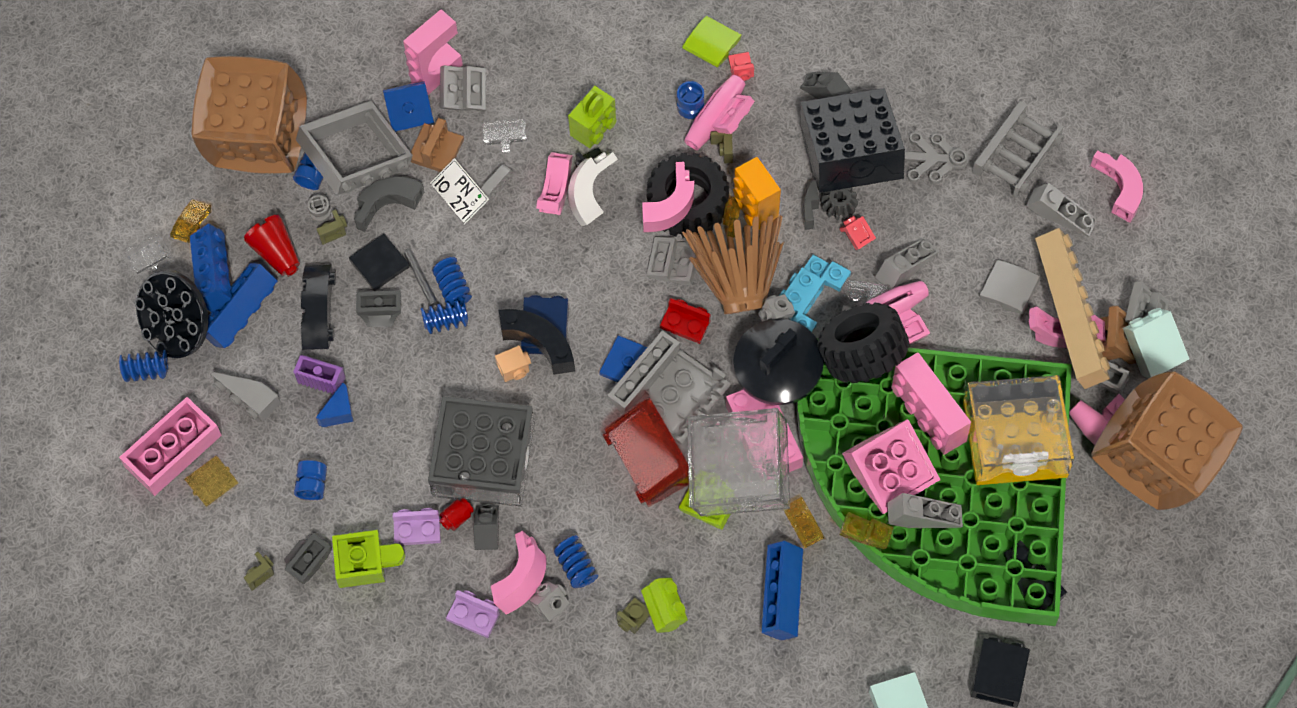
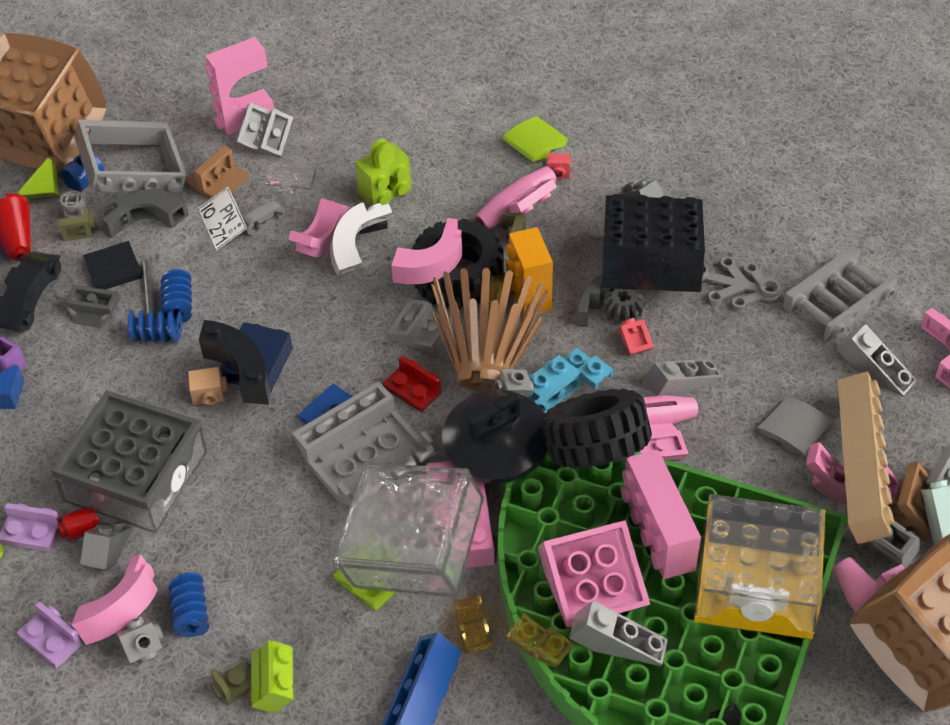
camera: 15 degrees right, 15 degrees down
(281, 192) = (42, 183): none -> lime slope
(408, 106) = (201, 133): blue plate -> none
(648, 452) = (313, 502): clear red windscreen -> none
(690, 99) = (491, 179): blue wheel -> none

